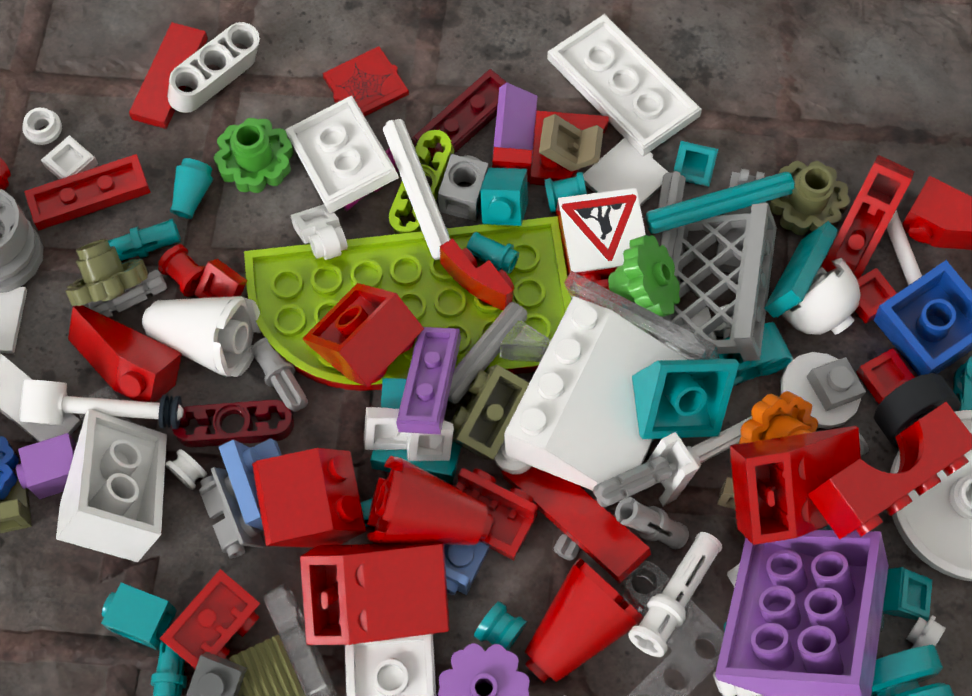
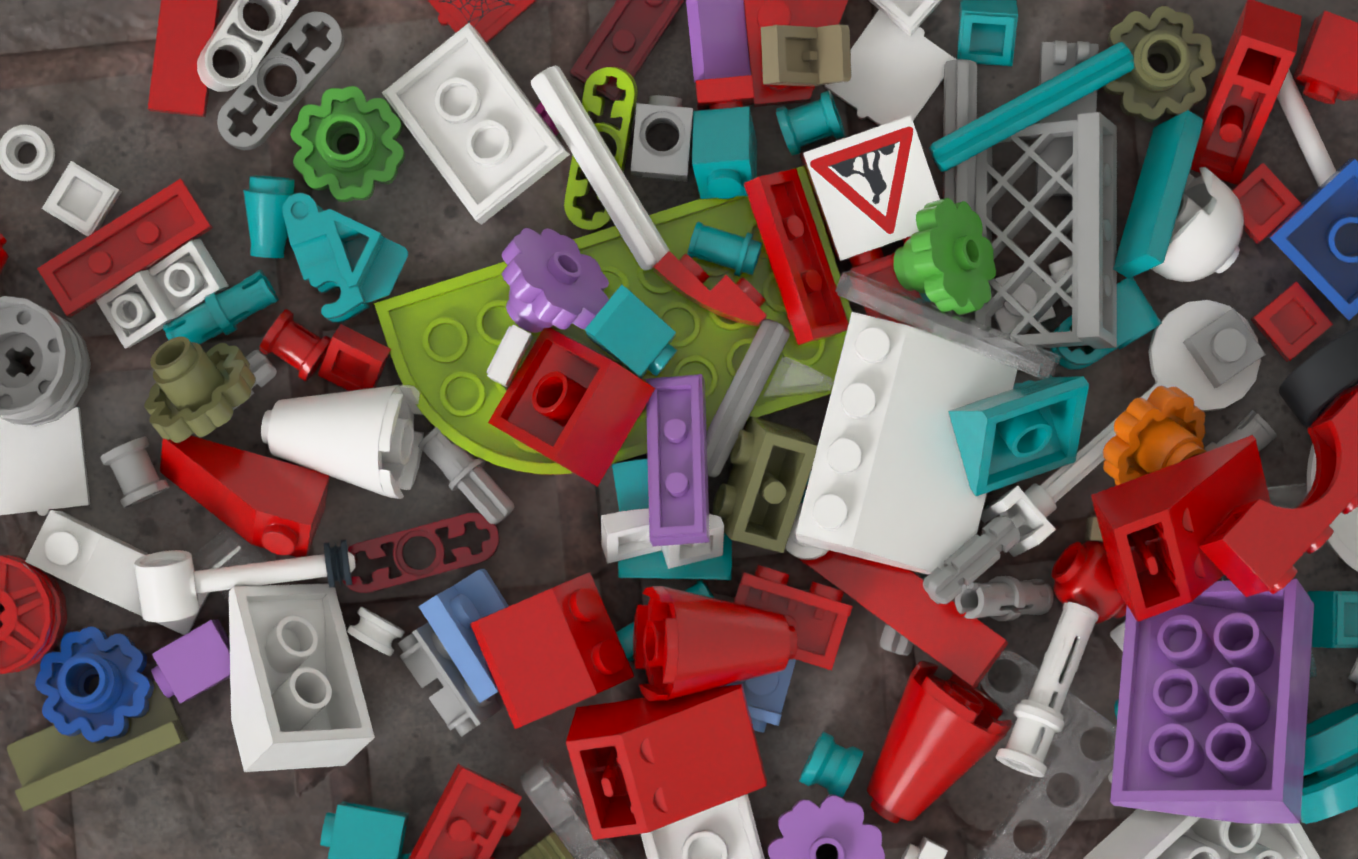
camera: 10 degrees left, 20 degrees up
(48, 332) = (134, 472): none -> light grey bush
(109, 222) = (162, 293): none -> white slope
(224, 98) = (276, 57): none -> light grey beam
(227, 210) = (341, 254): none -> teal piece
(321, 231) = (469, 245): white plate -> none
(327, 292) = (509, 355): none -> white tile
(365, 248) = (551, 282): none -> medium lavender plant
(415, 282) = (632, 334): none -> teal slope
(541, 264) = (796, 256): none -> red plate
(719, 520) = (1086, 579): none -> red head

